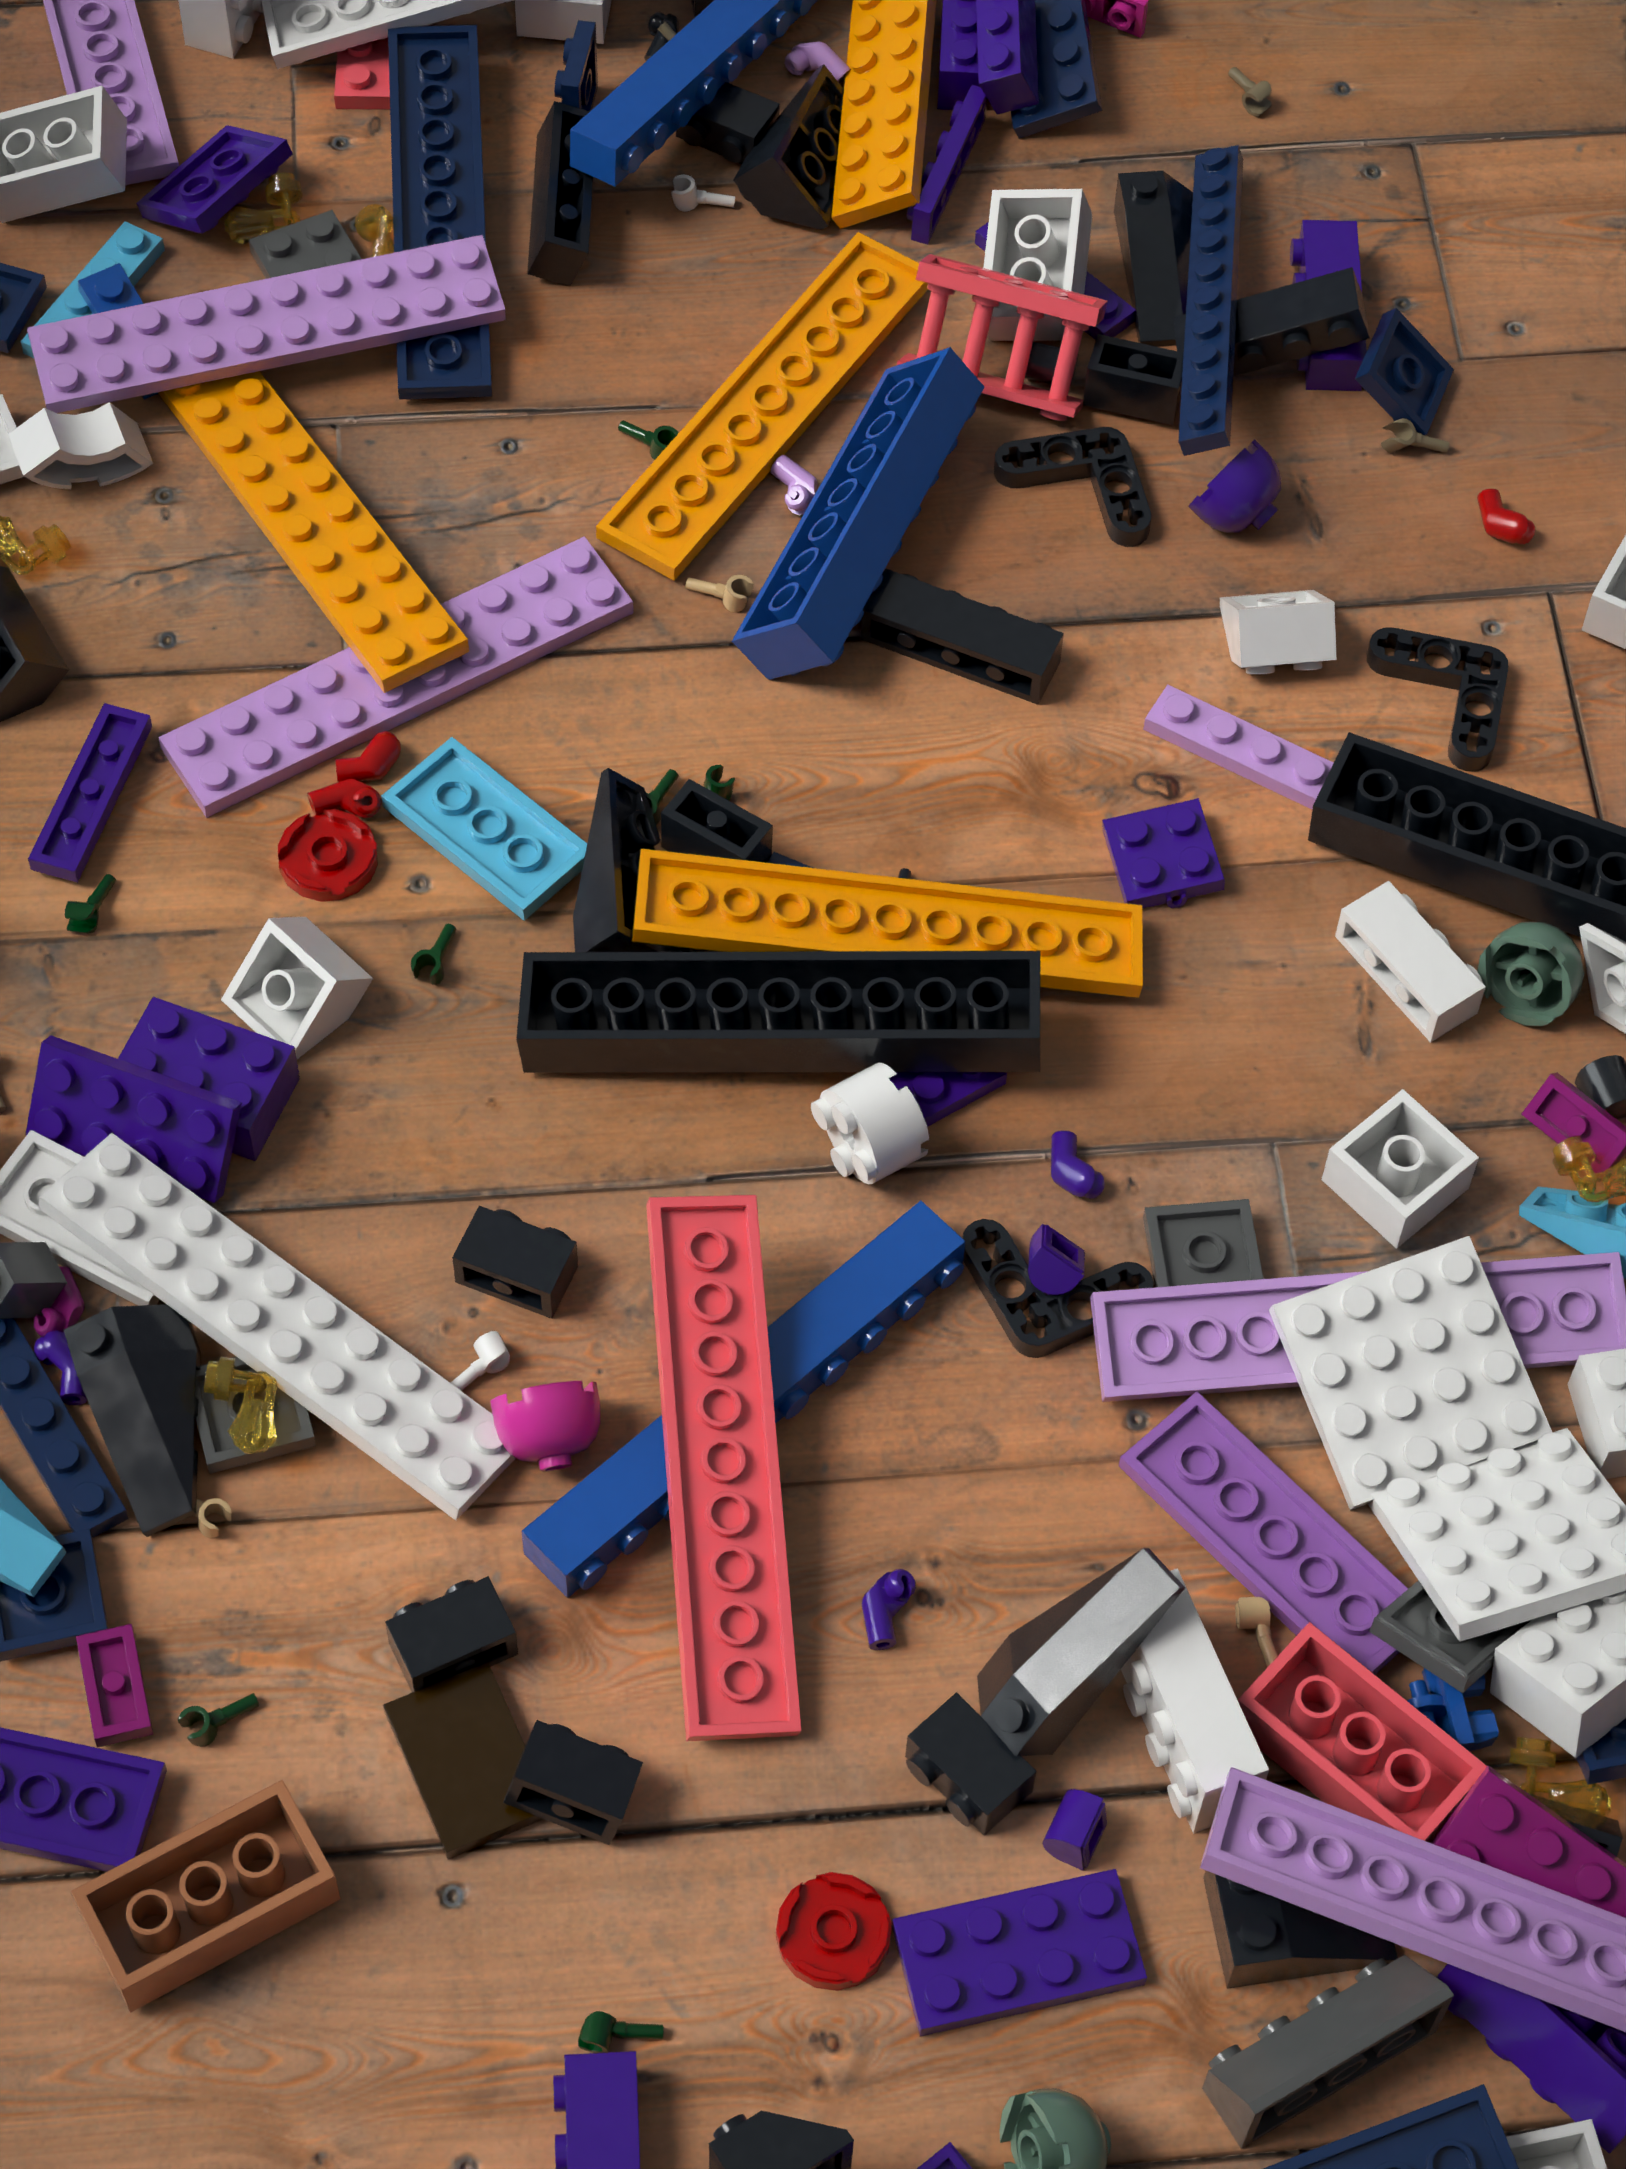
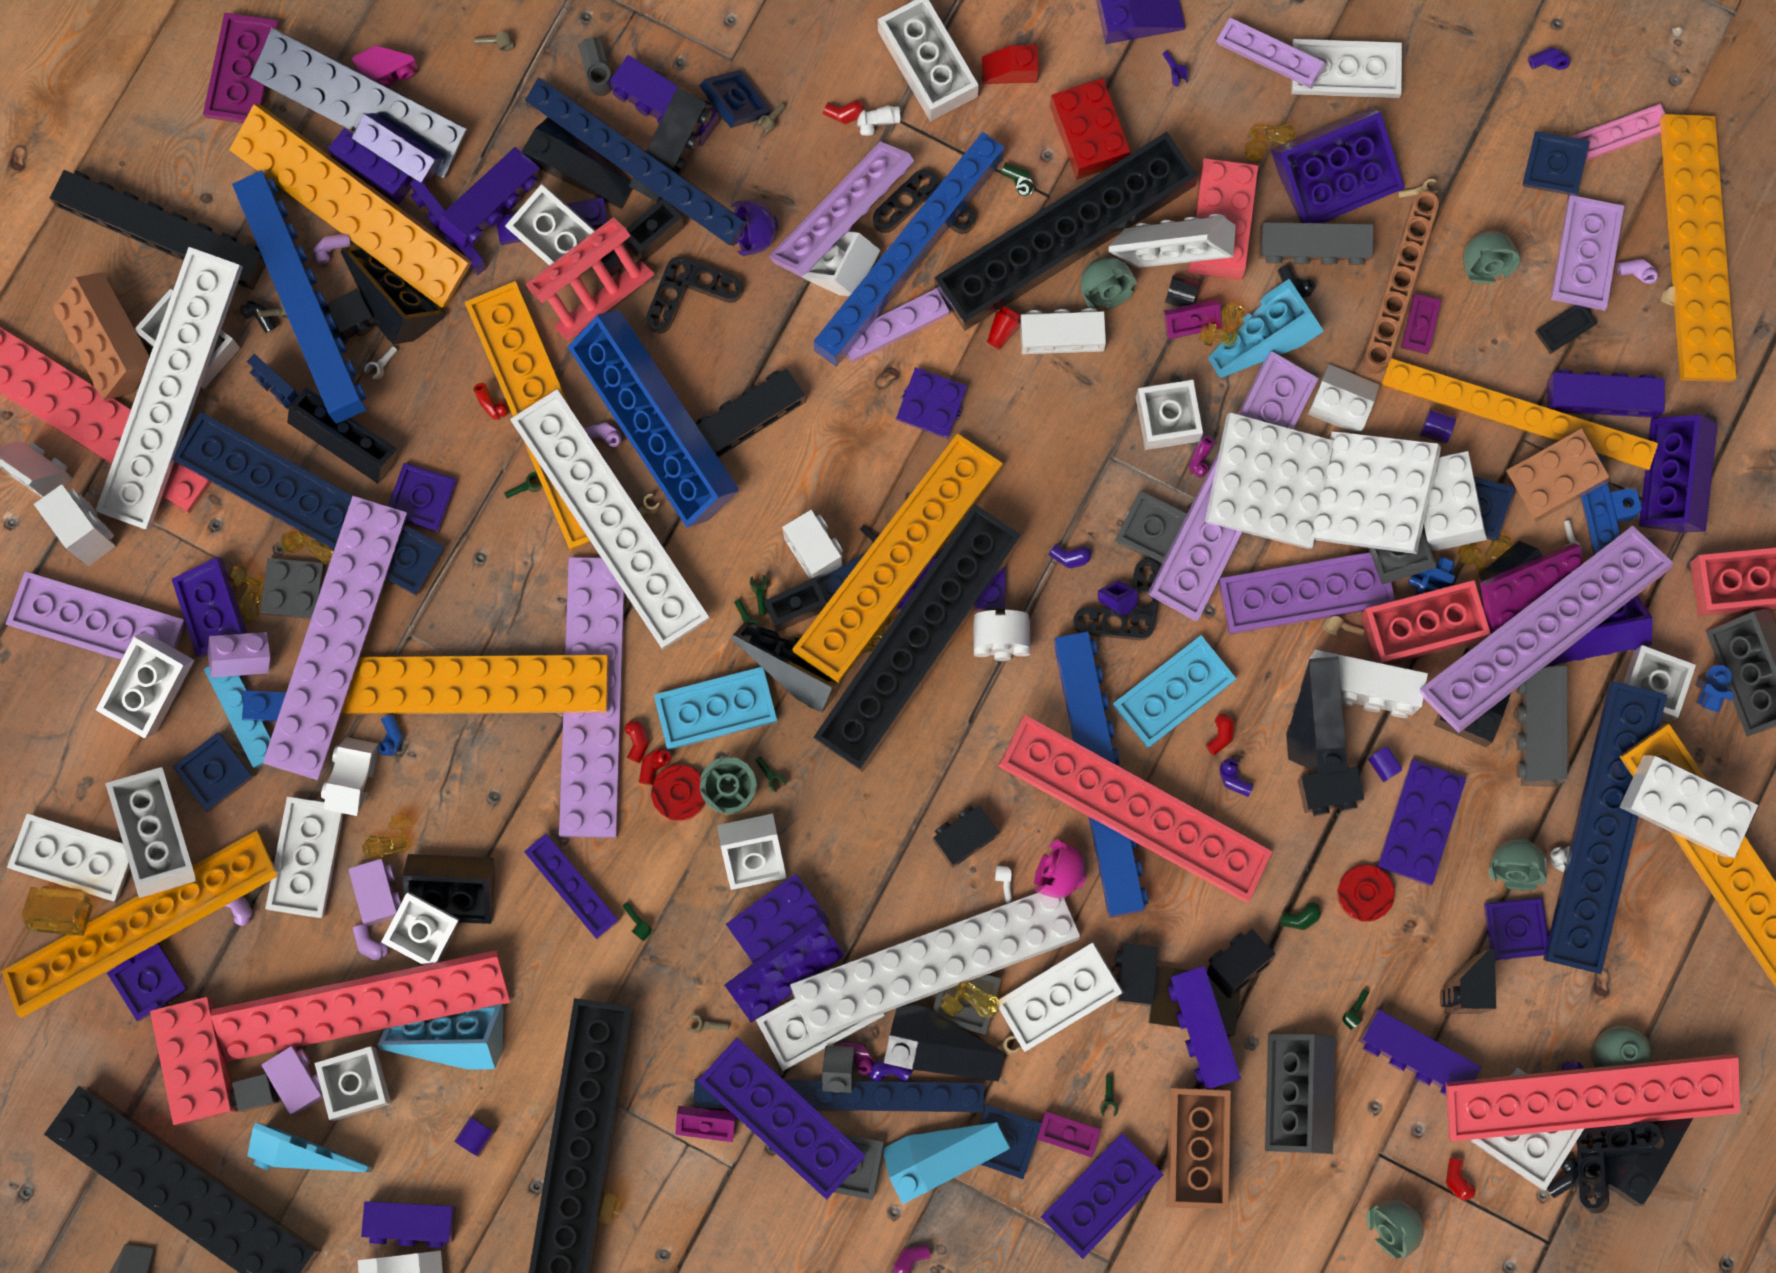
camera: 55 degrees left, 20 degrees up
(167, 234) = (238, 654): none -> lavender brick
(172, 476) = (392, 738): none -> blue arm
(337, 1534) = (1059, 997): none -> white plate
(373, 891) = (728, 785): none -> sand green cylinder
(409, 2019) = (1300, 1093): none -> dark grey slope
(424, 1784) = (1205, 1028): none -> dark purple slope
(547, 335) = (423, 496): none -> dark purple tile
(669, 546) = (610, 519): none -> white plate
(718, 1852) = (1304, 919): none -> dark green arm
(734, 346) = (484, 398): none -> red arm
(821, 802) = (812, 547): none -> white brick
(947, 1551) = (1225, 734): none -> red arm
(963, 1433) = (1174, 692): none -> medium azure plate
(981, 159) = (489, 198): none -> dark purple brick
(1315, 201) = (595, 65): none -> dark grey piece
(1350, 879) = (1003, 327): none -> red cone
(1367, 684) = (909, 249): none -> blue brick
(1375, 583) = (841, 209): none -> lavender plate
(1376, 1255) = (1200, 453): none -> magenta arm
(1531, 563) = (881, 116): none -> white arm
(1600, 782) = (1021, 178): none -> dark green arm

